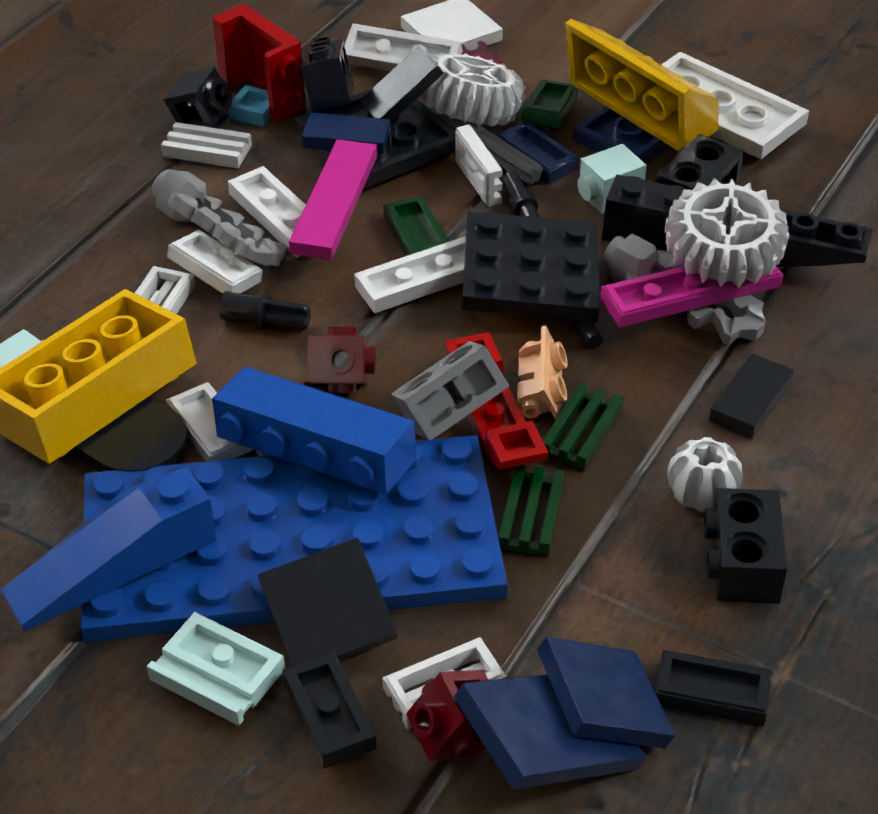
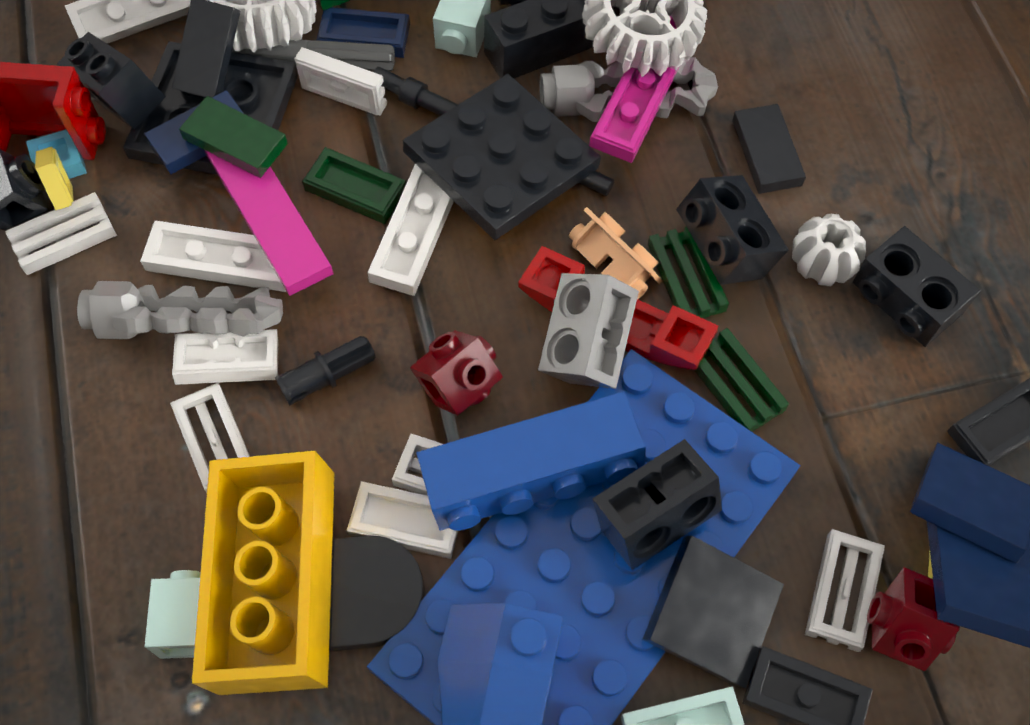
camera: 45 degrees left, 20 degrees up
(233, 108) = (54, 178): none -> light yellow tile
(356, 491) = (658, 503): none -> black brick
(358, 142) = (233, 136): none -> dark green tile
(640, 410) = (731, 229): none -> black brick

